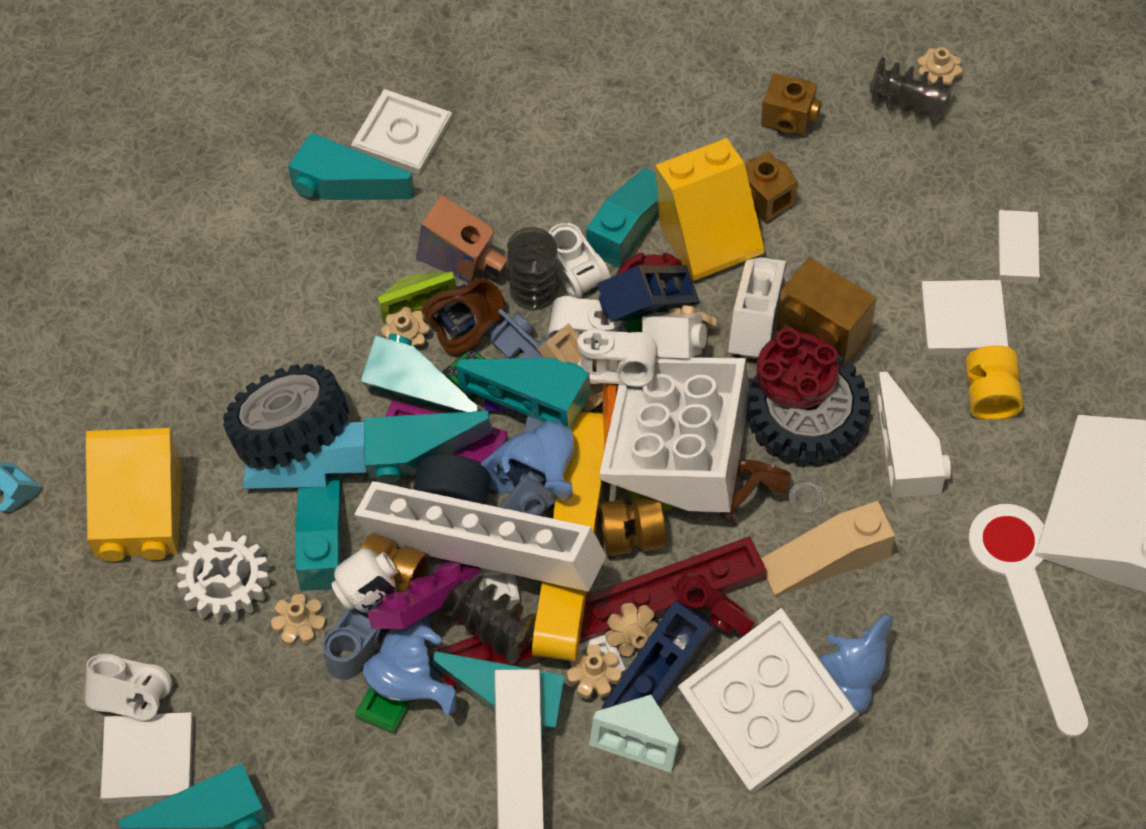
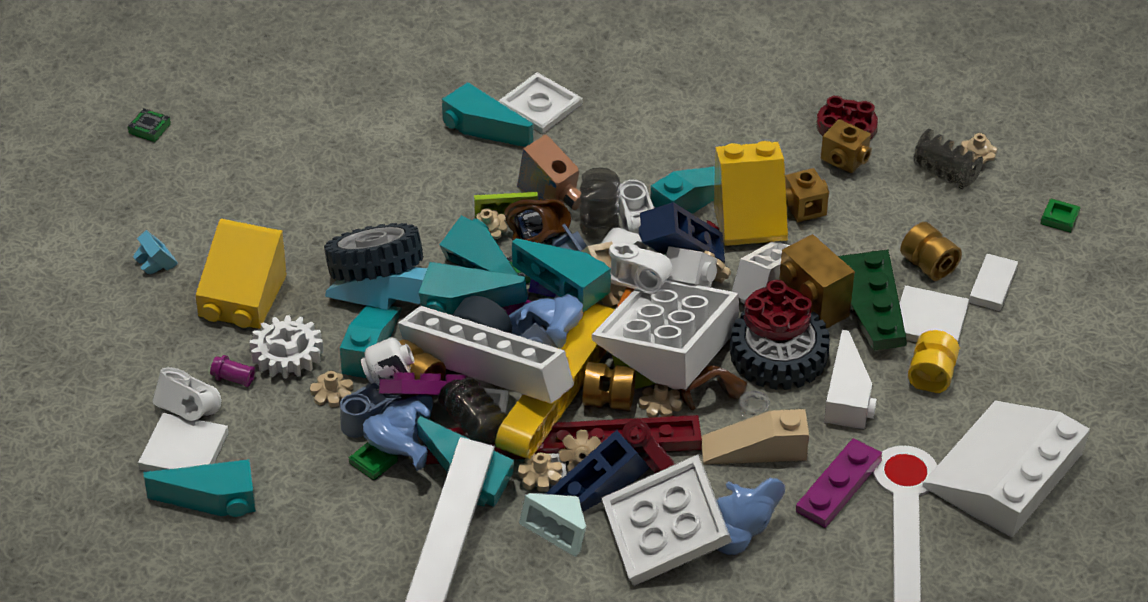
camera: 15 degrees right, 15 degrees down
(168, 629) = (232, 371): none -> magenta pin
(694, 526) = (660, 401): none -> tan plant
(770, 54) = (852, 112): none -> dark red tile
(899, 312) = (876, 299): none -> dark green wing
(931, 224) = (930, 251): none -> pearl gold wheel
(941, 580) = (839, 482): none -> magenta plate
(1061, 131) = (1060, 215): none -> green tile

